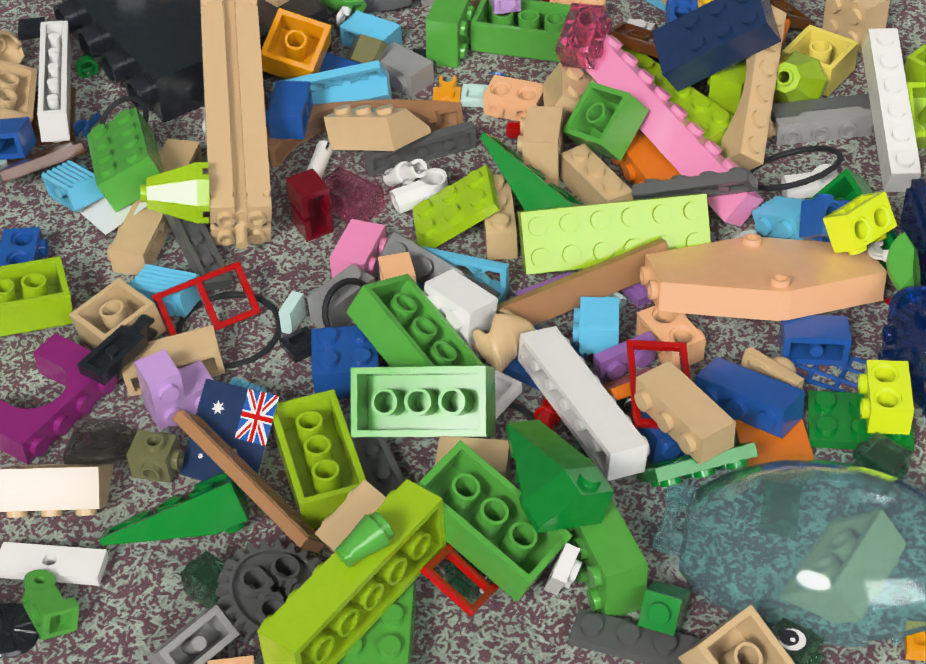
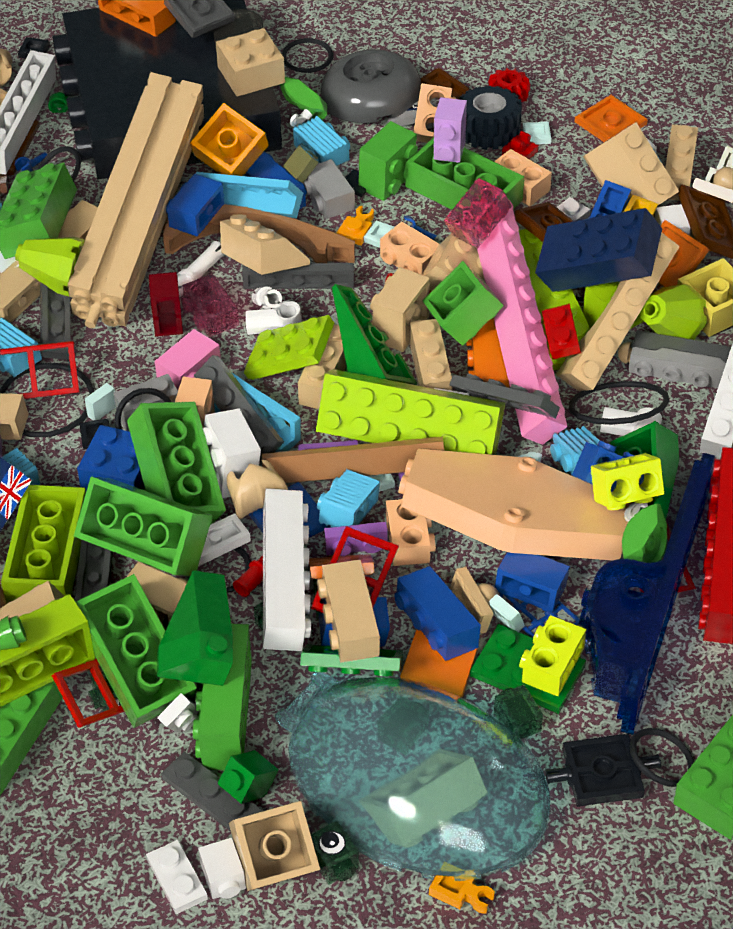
camera: 20 degrees right, 5 degrees up
(712, 118) = (561, 331): none -> red plate
(816, 377) = (506, 613): none -> light aqua tile

